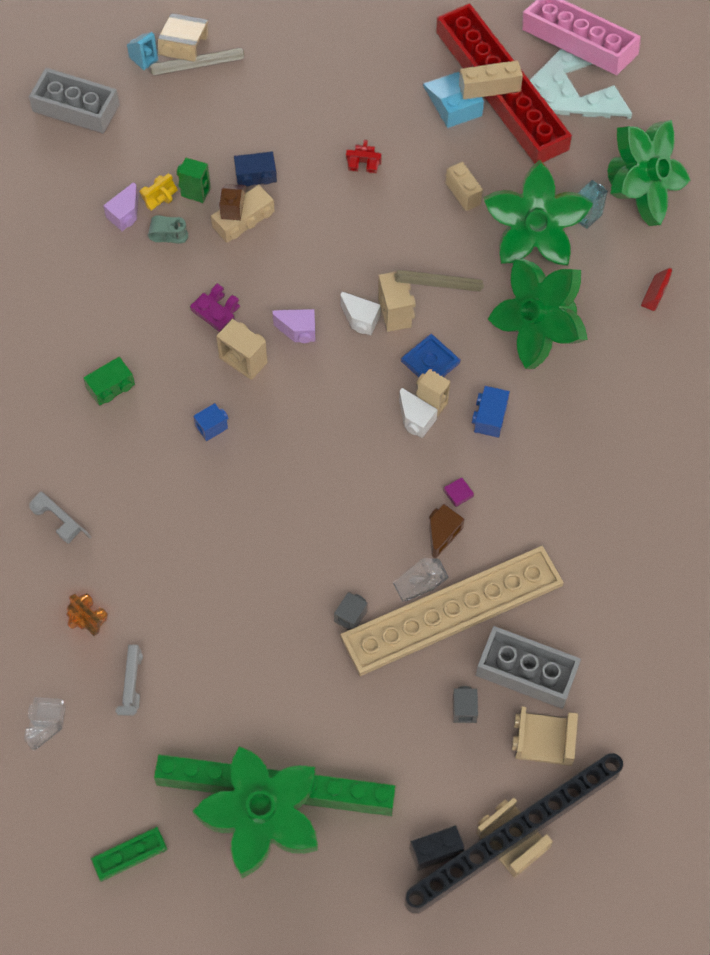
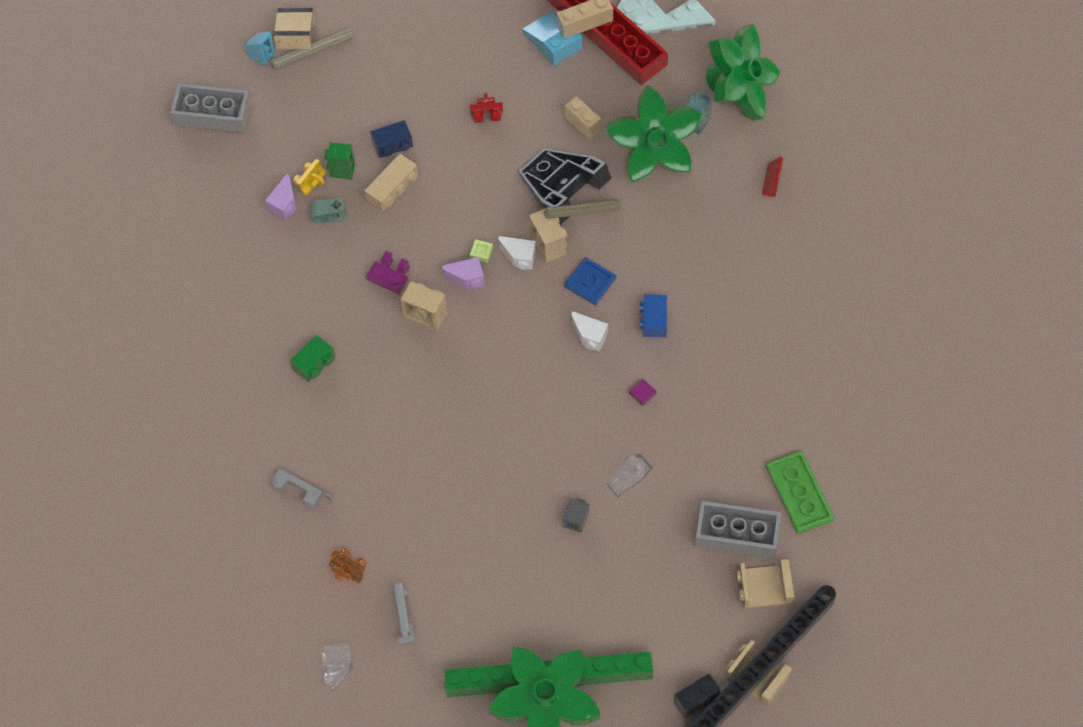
camera: 10 degrees left, 0 degrees up
(211, 421) = (412, 375): blue brick -> none
(232, 201) = (381, 174): reddish brown slope -> none
(321, 304) = (482, 250): none -> yellowish green plate
(424, 241) = (558, 175): none -> black wedge
(433, 390) = (600, 307): tan brick -> none
(443, 528) = (637, 426): reddish brown slope -> none
(451, 610) = (661, 495): tan plate -> none
(465, 705) = (692, 572): dark grey brick -> none
(541, 311) = (677, 219): green plant -> none
(608, 640) = (799, 492): none -> bright green tile

